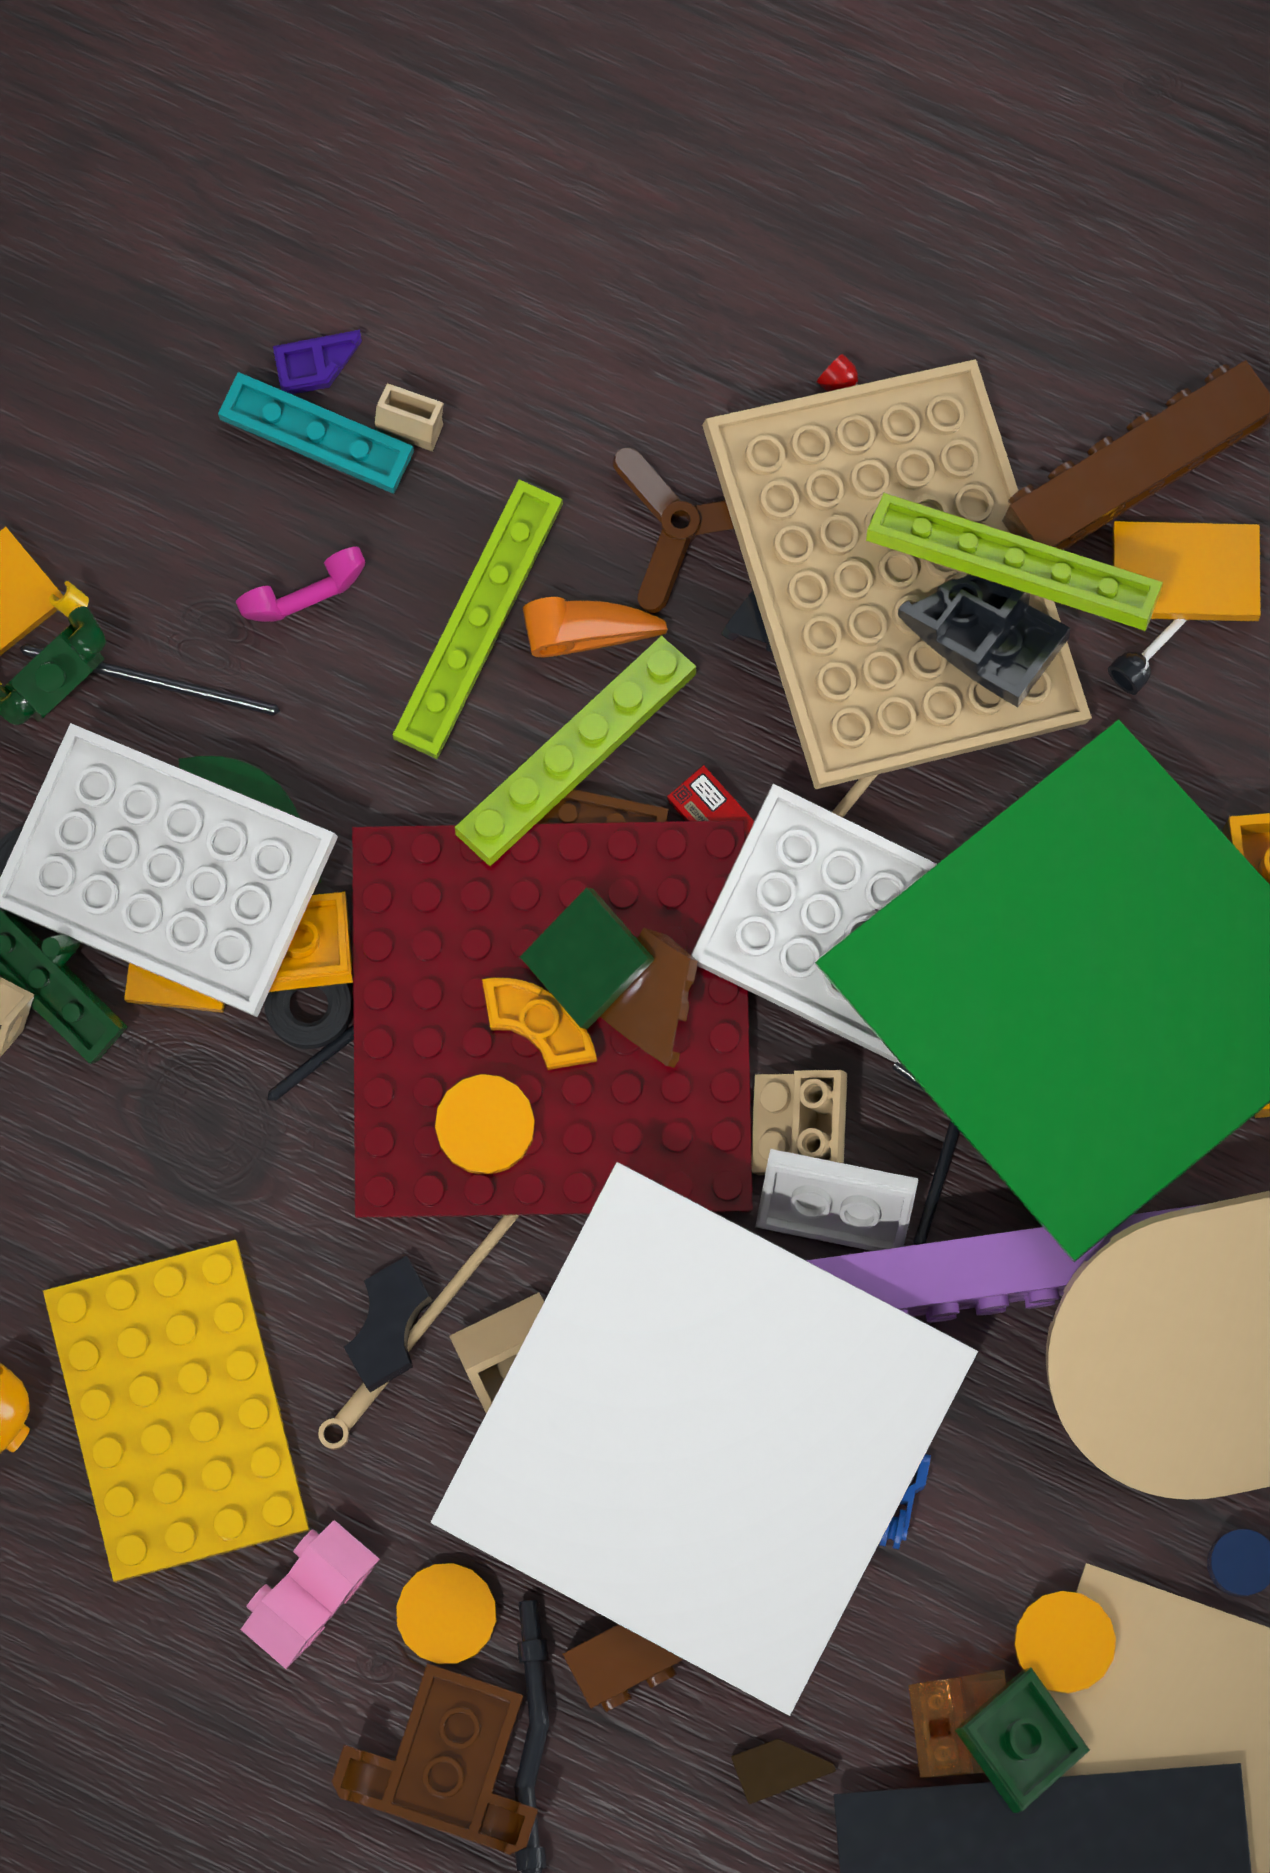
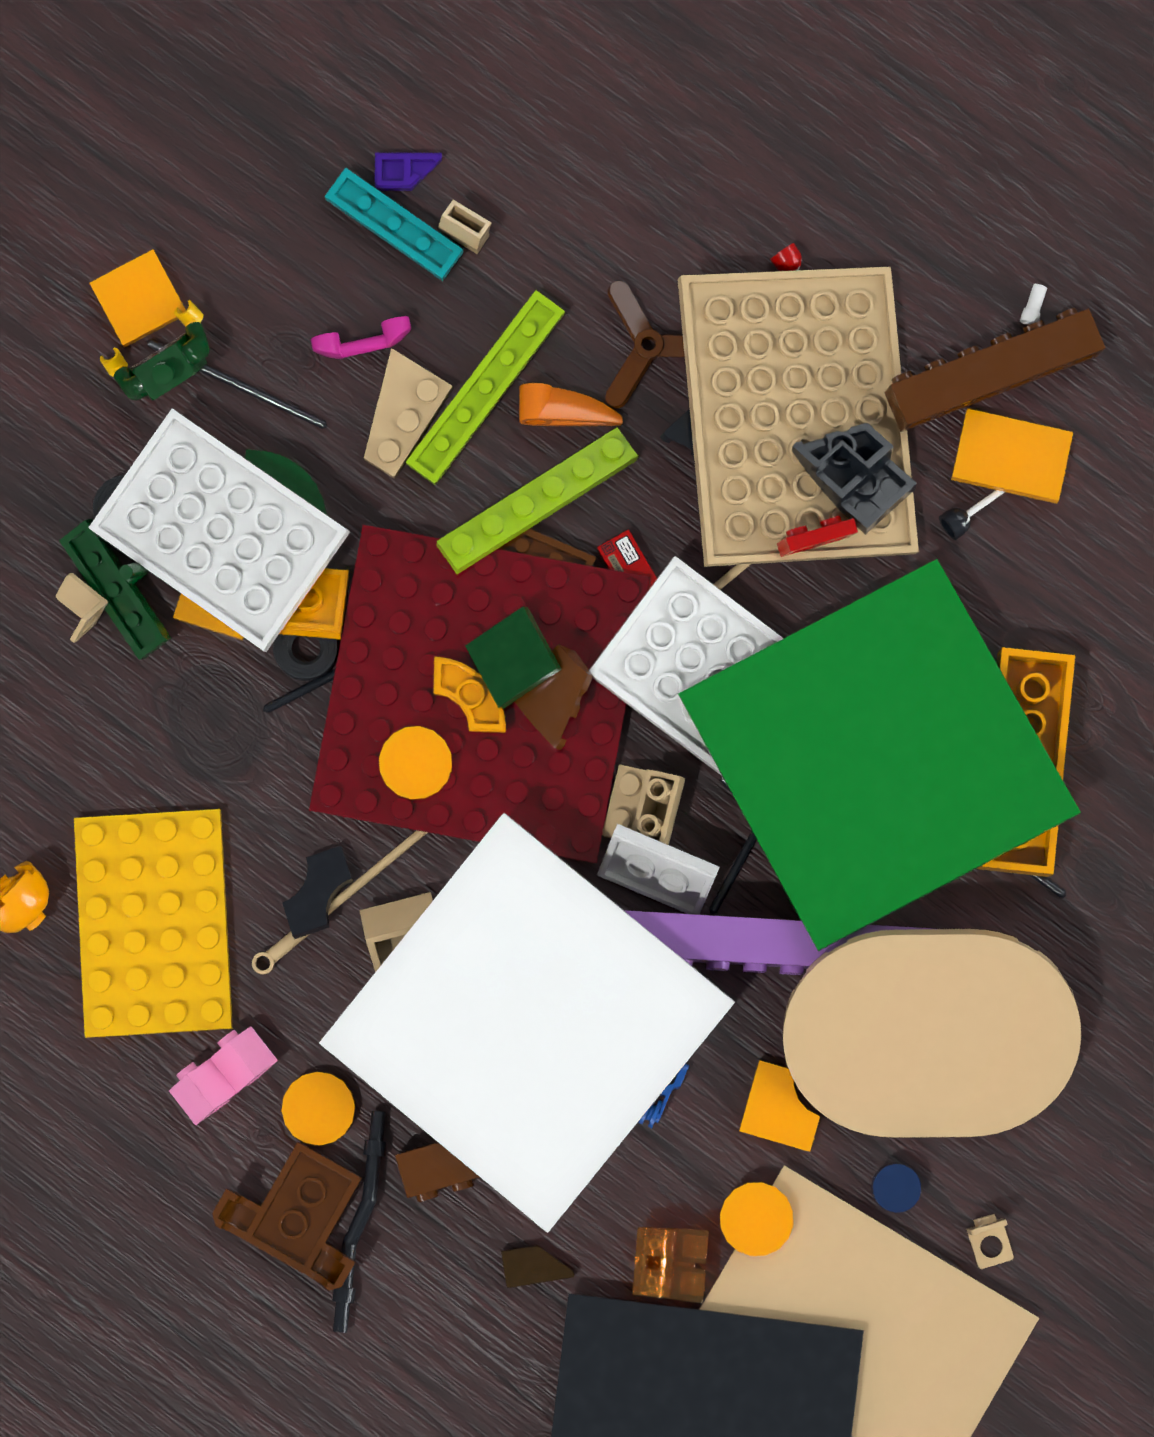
camera: 10 degrees right, 5 degrees up
(377, 673) = (403, 412): none -> tan wing
(971, 710) = (801, 539): none -> red plate
(1014, 561) = (884, 428): lime plate -> none
(1022, 1740) = (710, 1283): dark green tile -> none
(1058, 1491) = (776, 1111): none -> light orange tile
(1172, 372) = (1032, 311): none -> white piece

